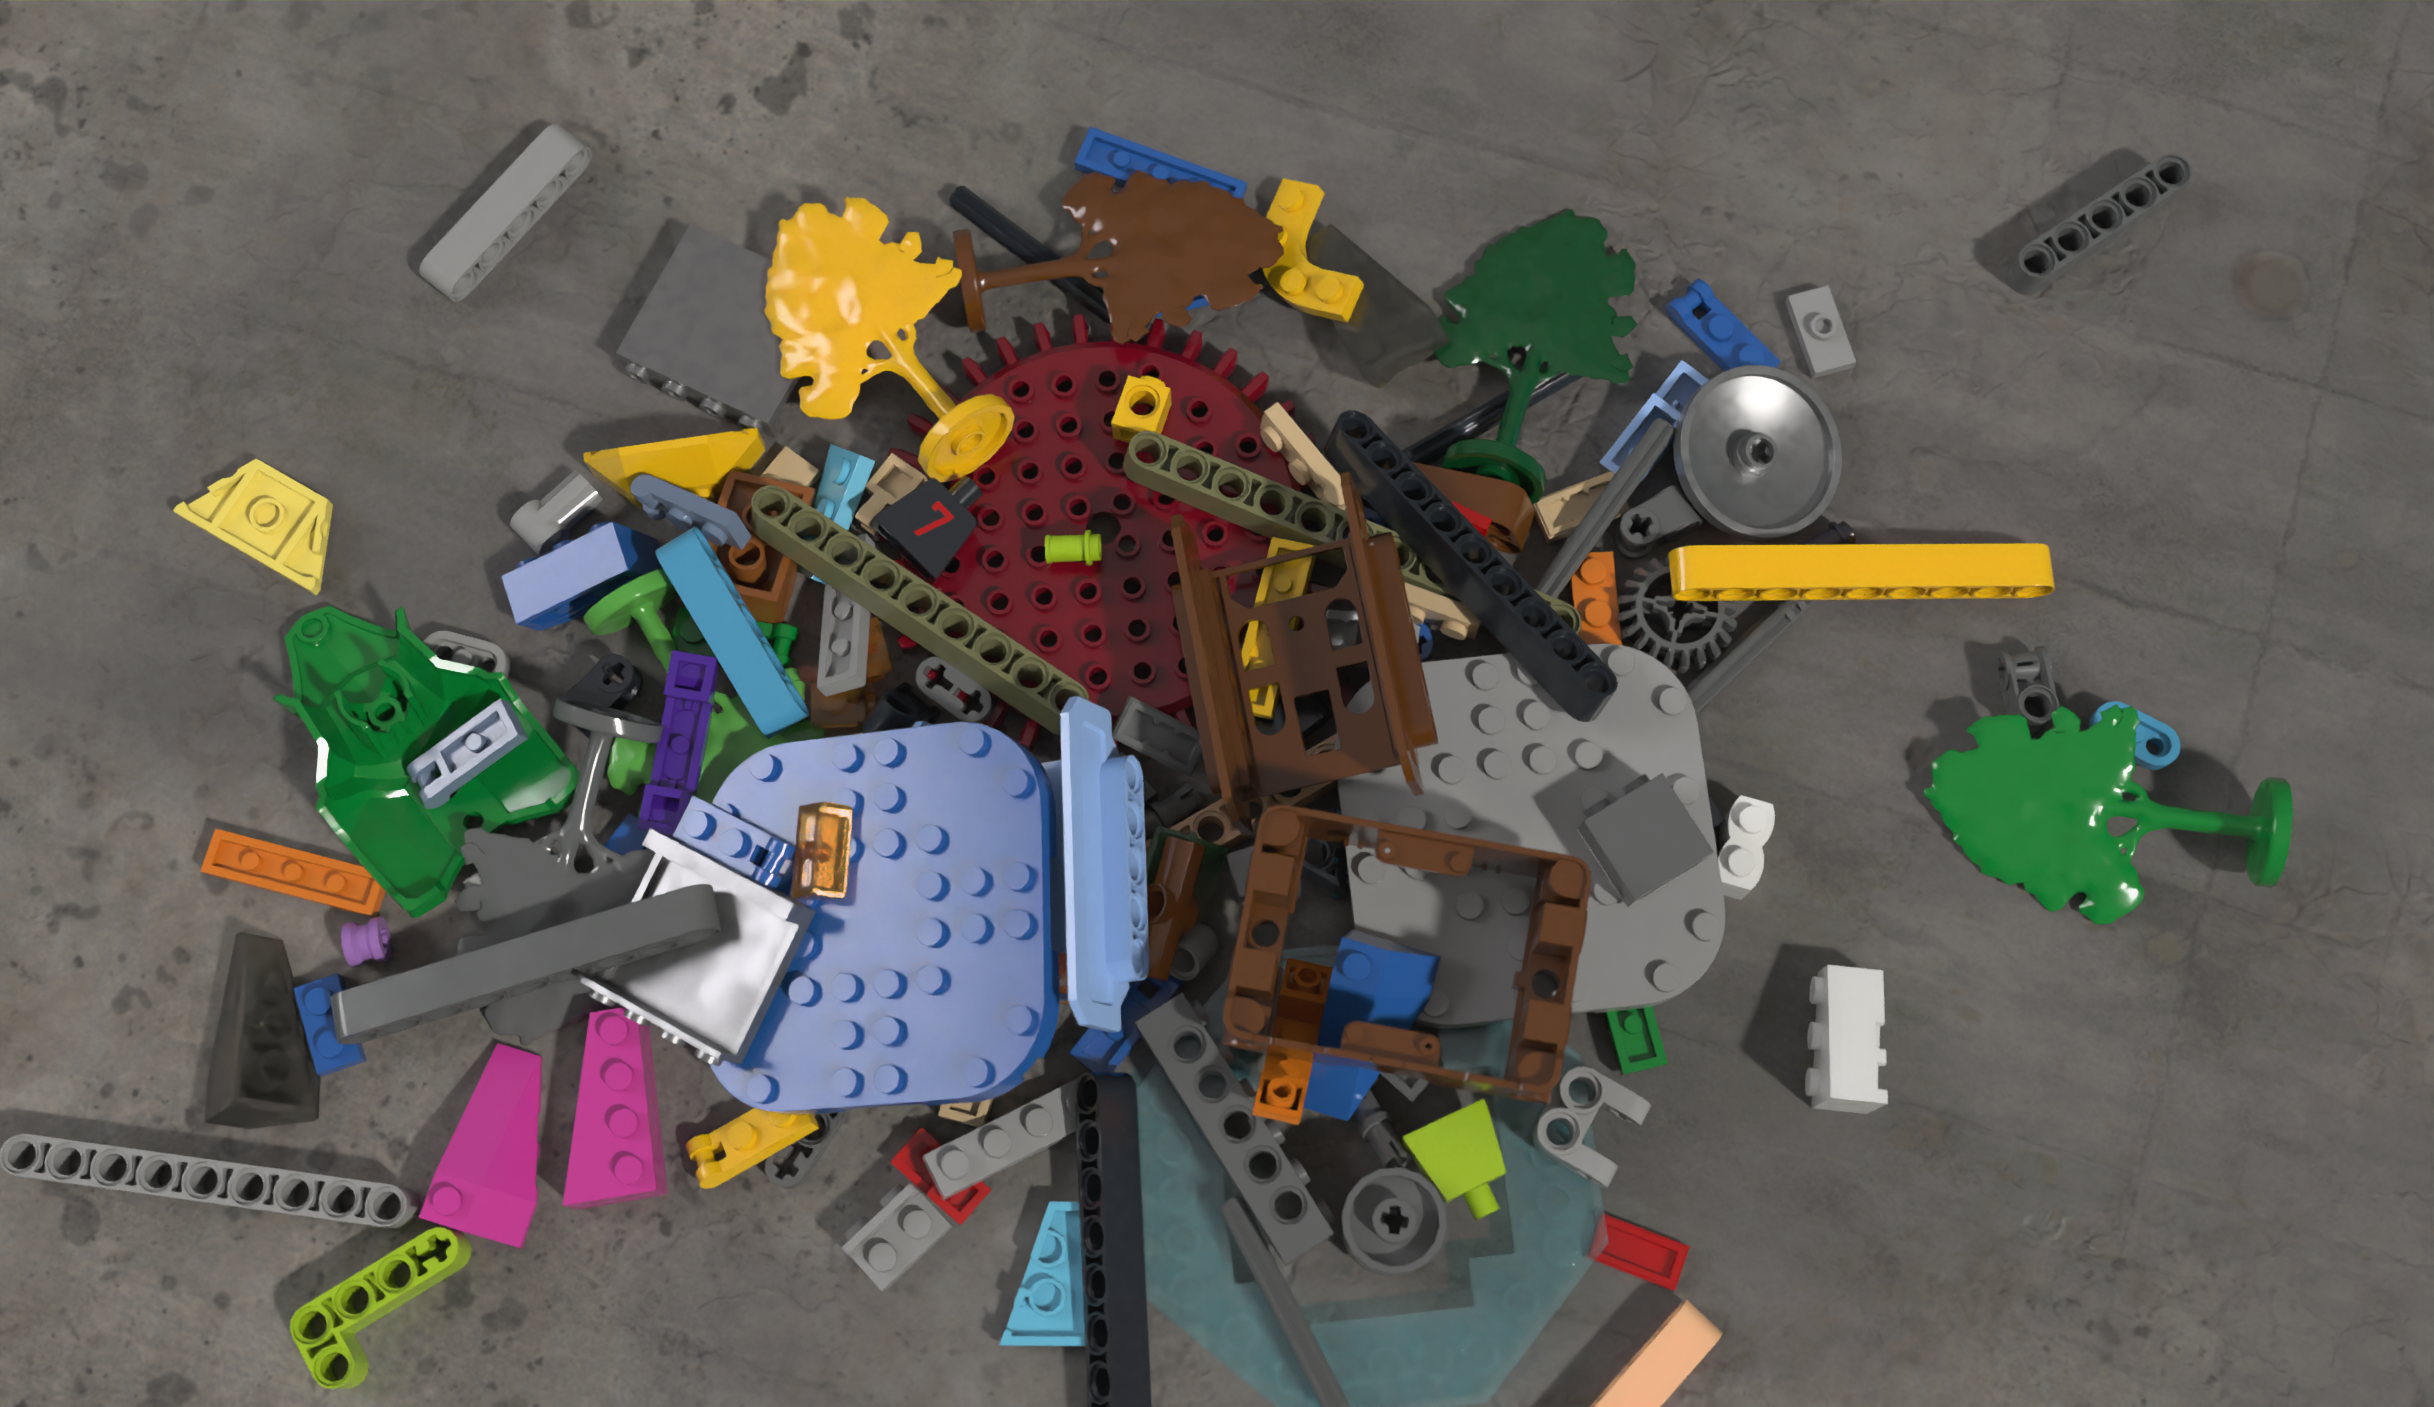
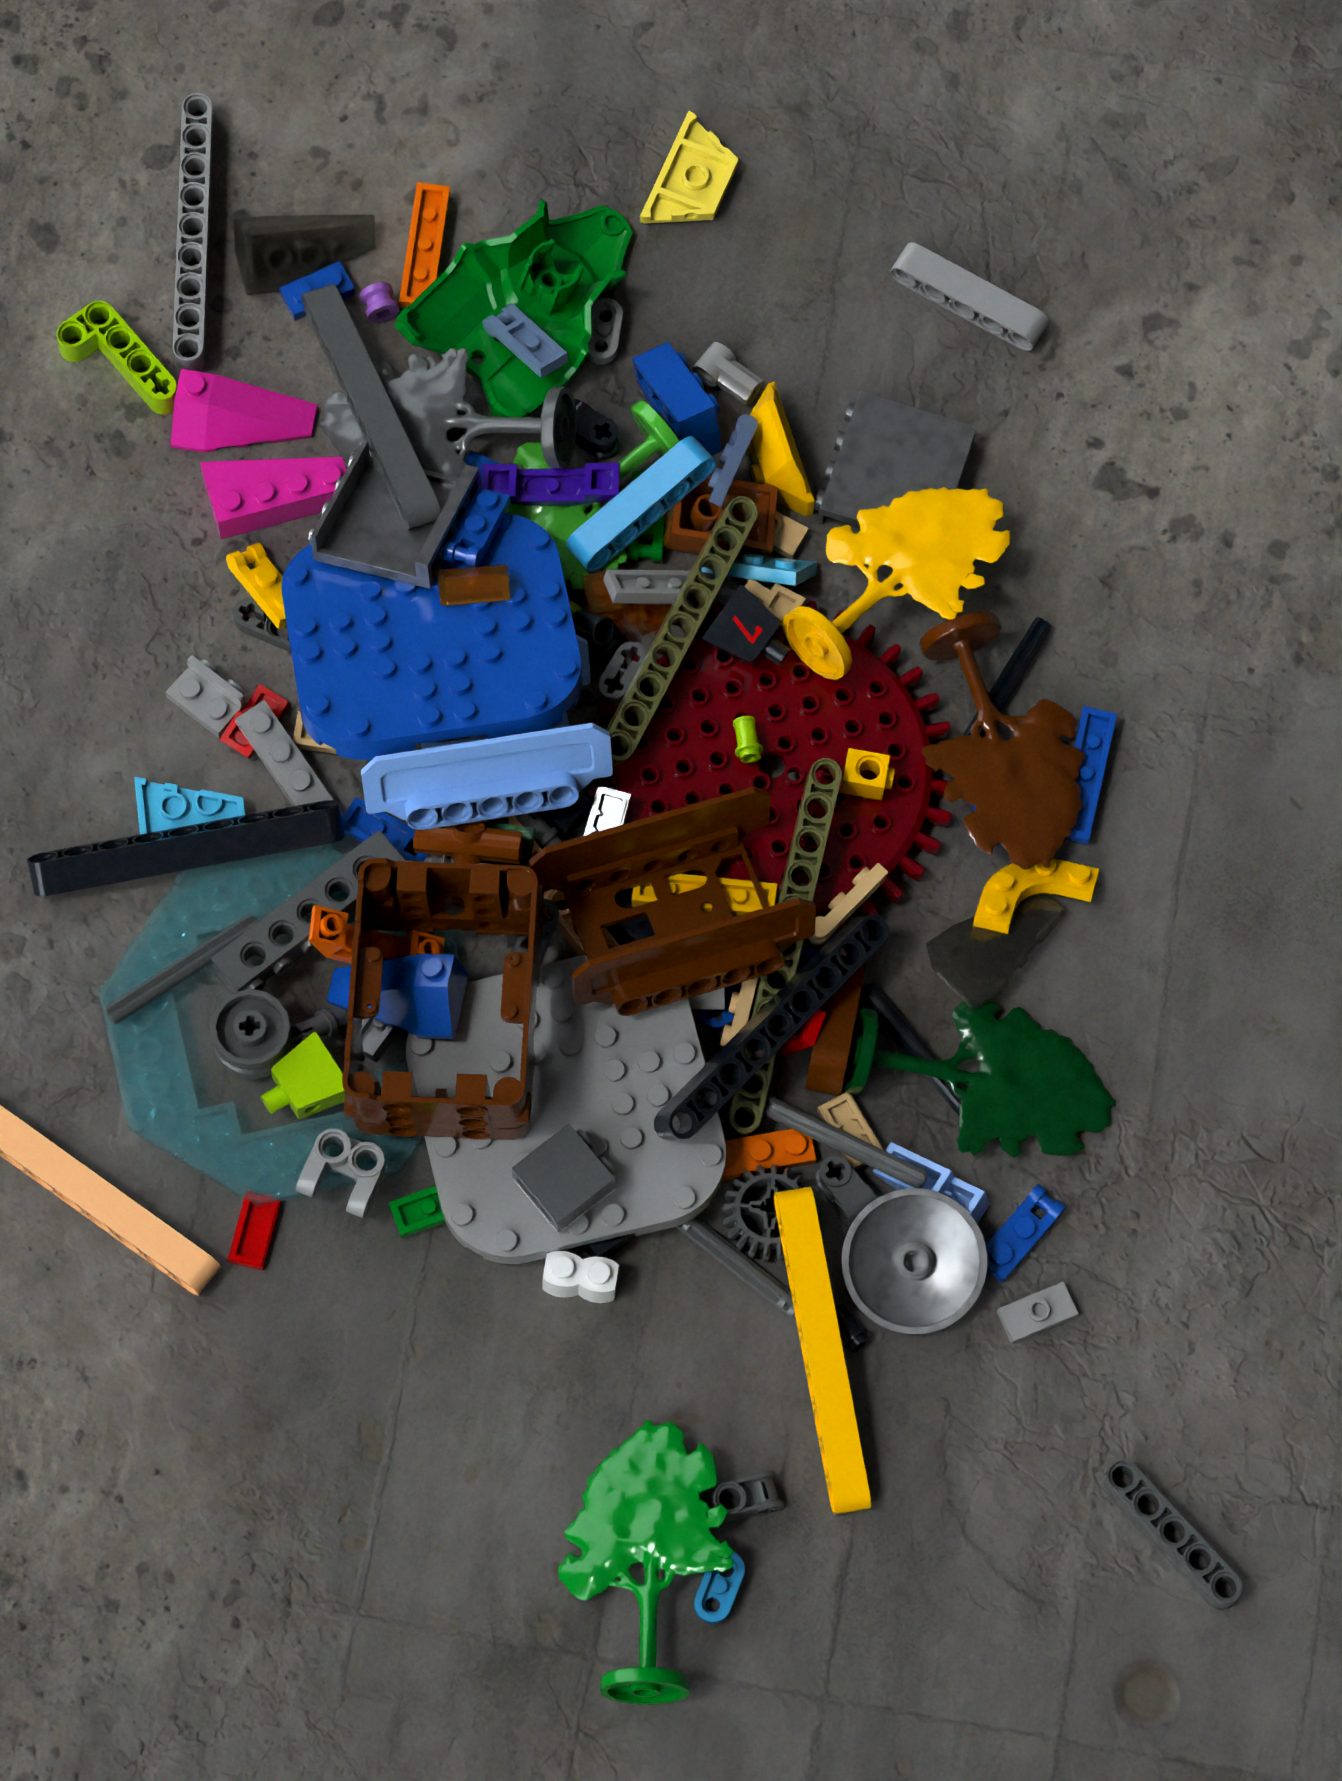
camera: 75 degrees right, 5 degrees down
(1846, 1040) = (435, 1369): white wedge -> none

